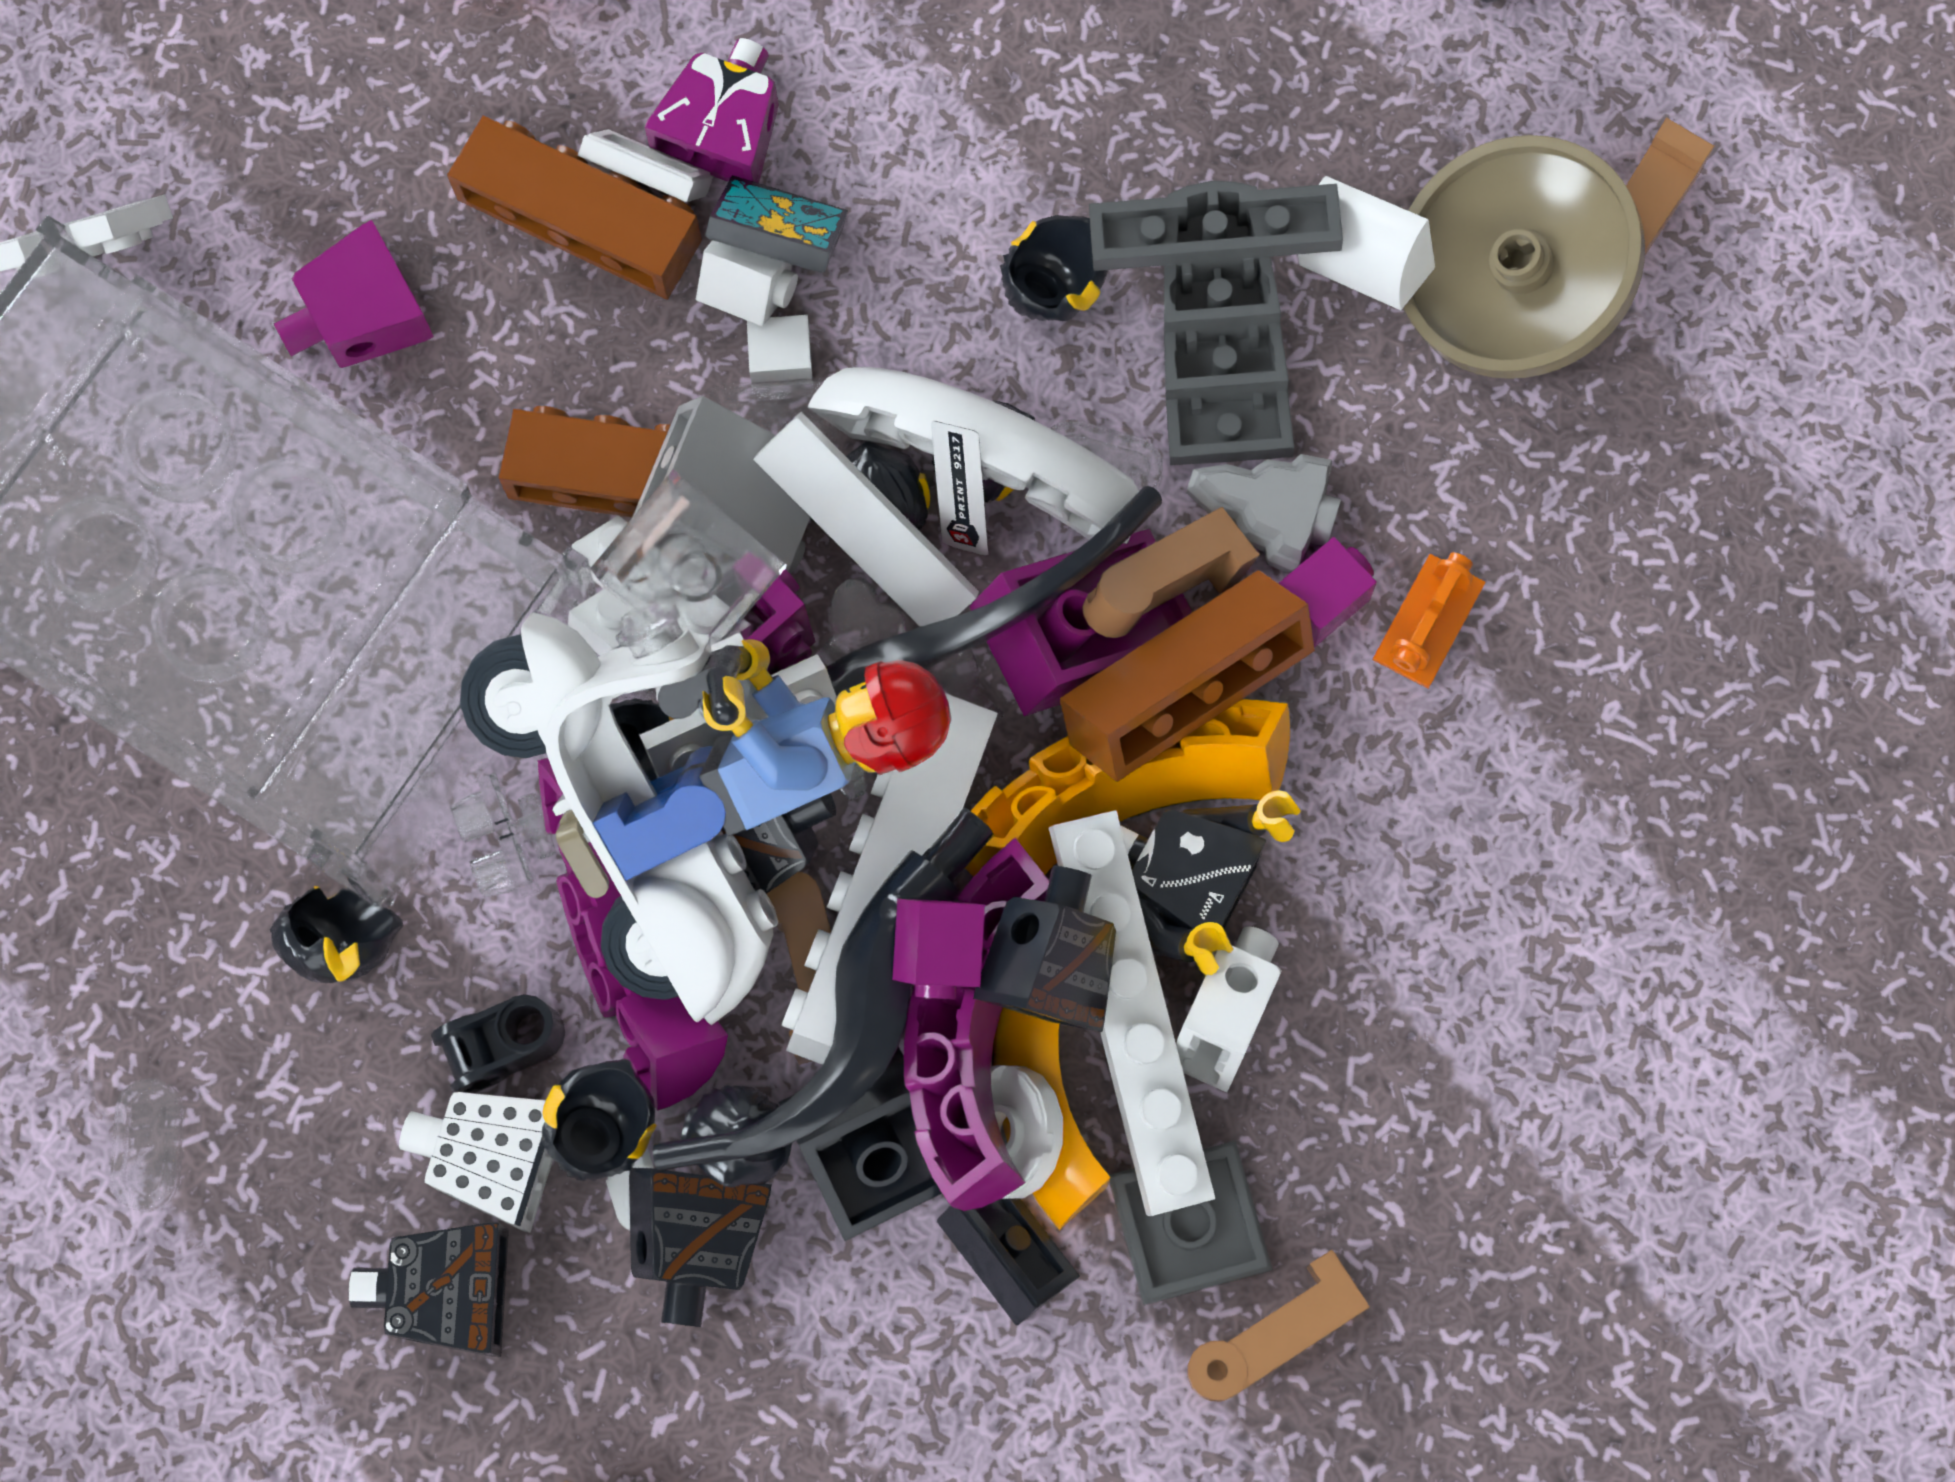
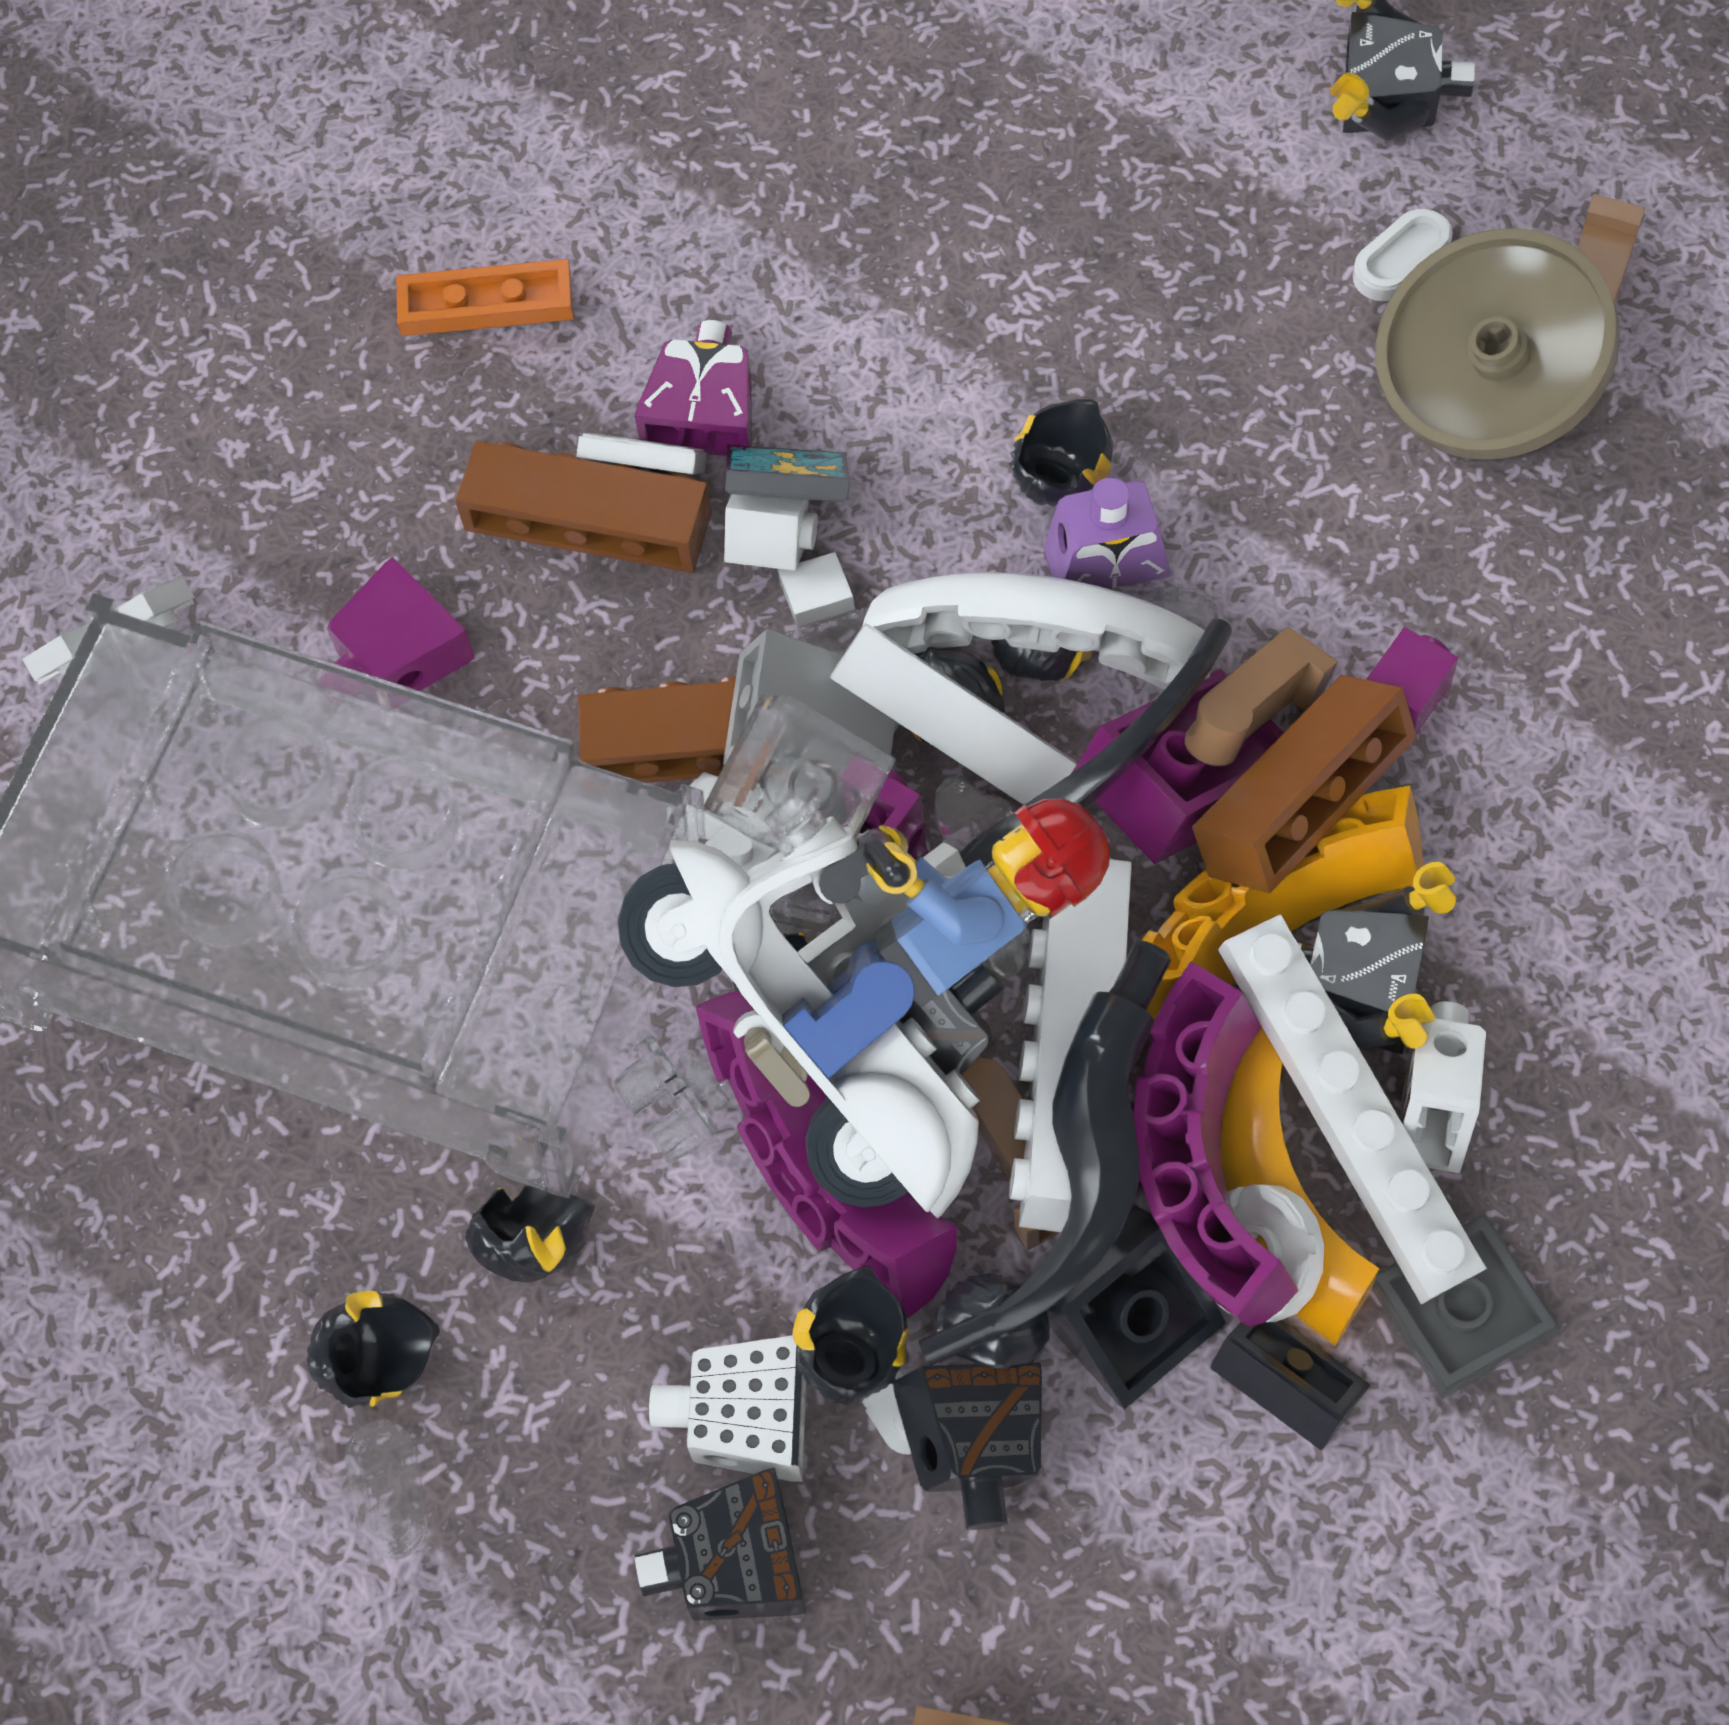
camera: 10 degrees left, 10 degrees down
(158, 1011) = (370, 1348): none -> black hair
(485, 1044) = (717, 1299): black piece -> none
(938, 946) = (1153, 1068): magenta brick -> none
(960, 487) = (1035, 661): white sticker -> none
(1052, 956) = (1265, 1060): black torso -> none
(1073, 371) = (1107, 536): none -> medium lavender torso
(1221, 304) = (1230, 450): dark grey slope -> none
(1226, 1368) = (1549, 1432): medium nougat leg -> none
(1274, 505) = (1336, 614): light grey rock -> none
(1383, 248) = (1349, 364): white brick -> none
(1430, 618) = (1515, 684): orange hinge -> none
(1459, 126) = (1398, 251): none -> white tile

